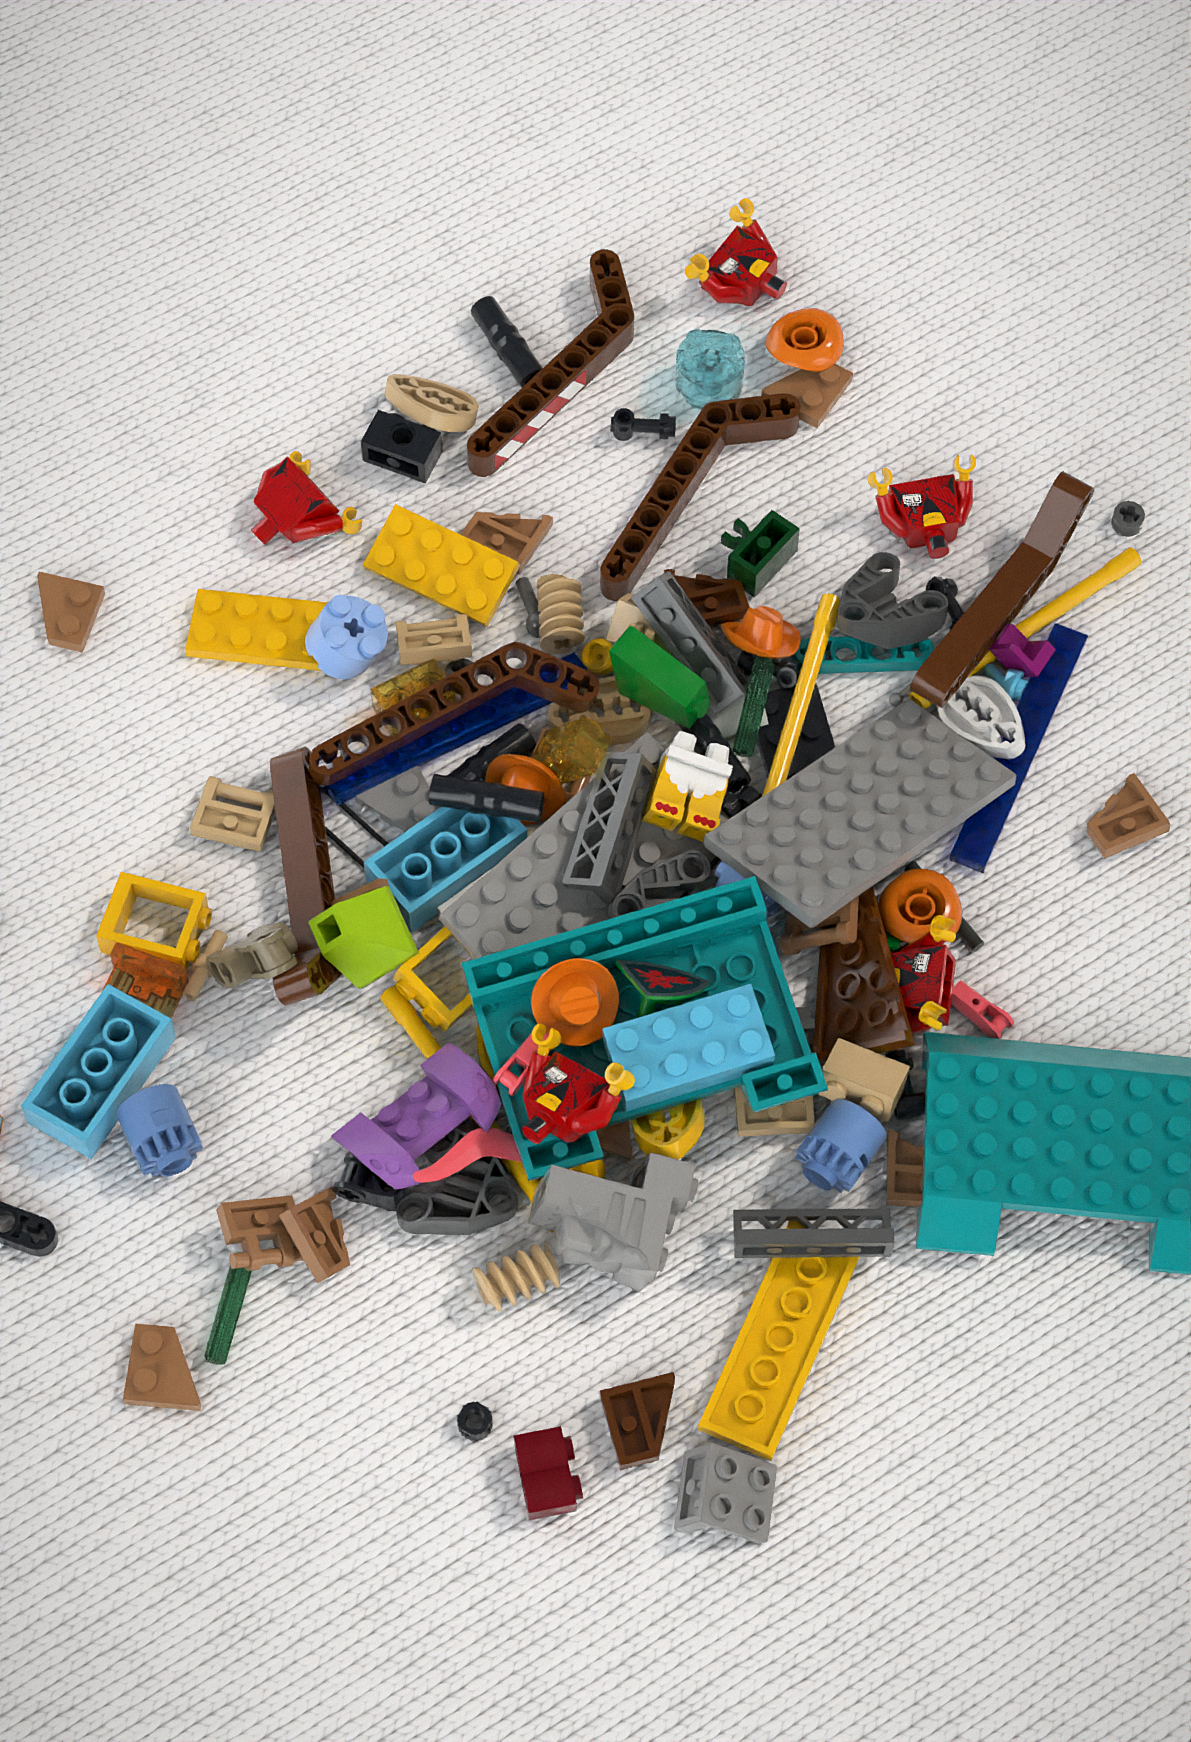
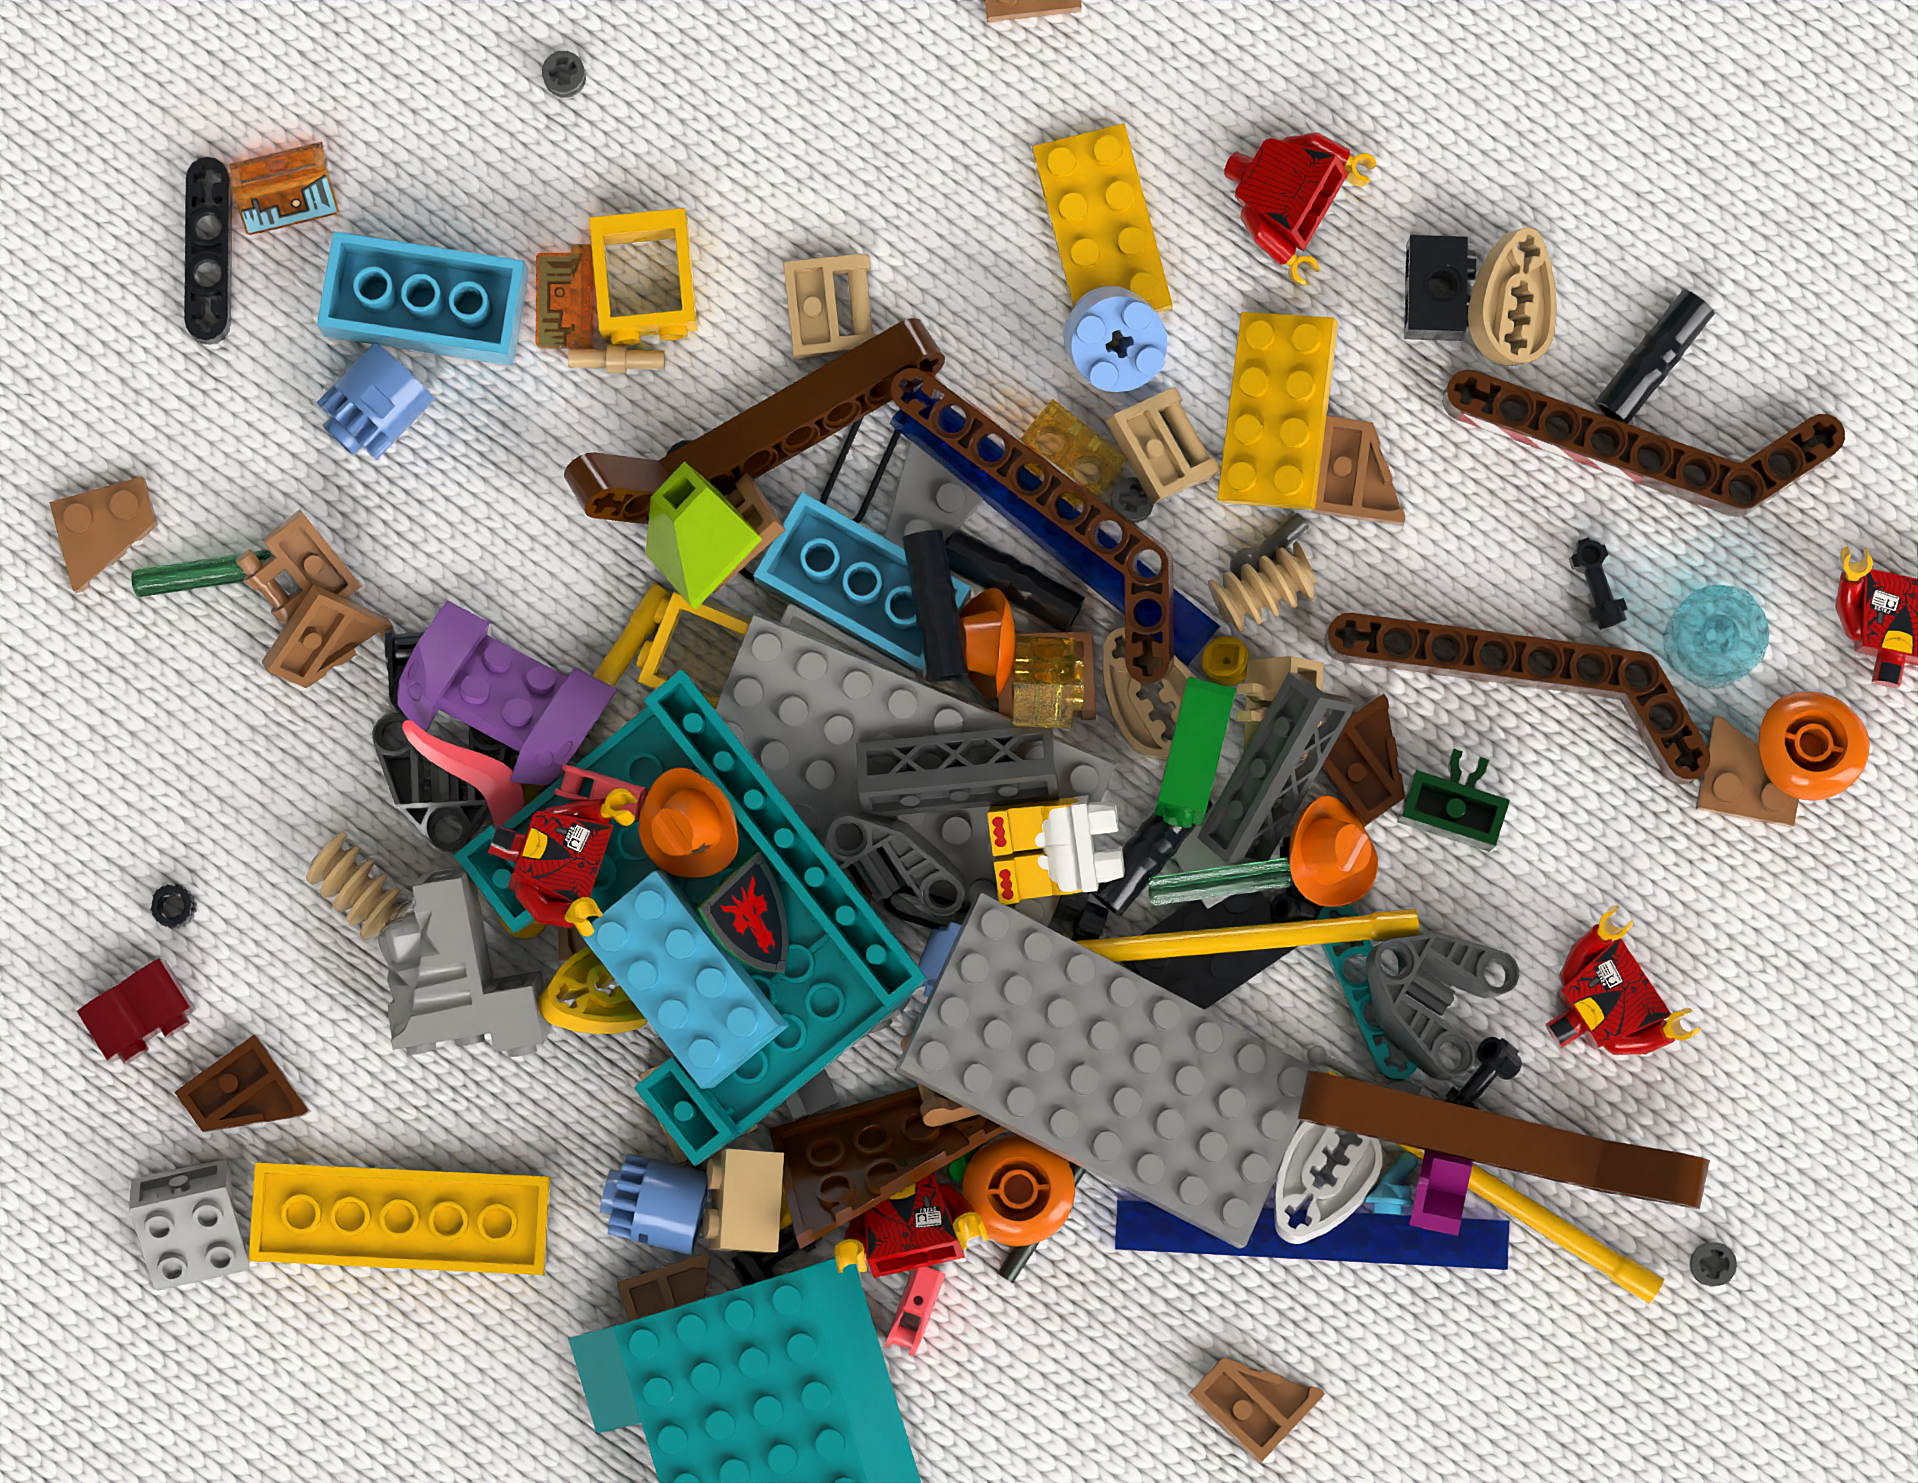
camera: 70 degrees right, 20 degrees up
(260, 955) = (625, 419): dark tan piece -> none
(812, 1241) = (516, 1214): dark grey fence -> none

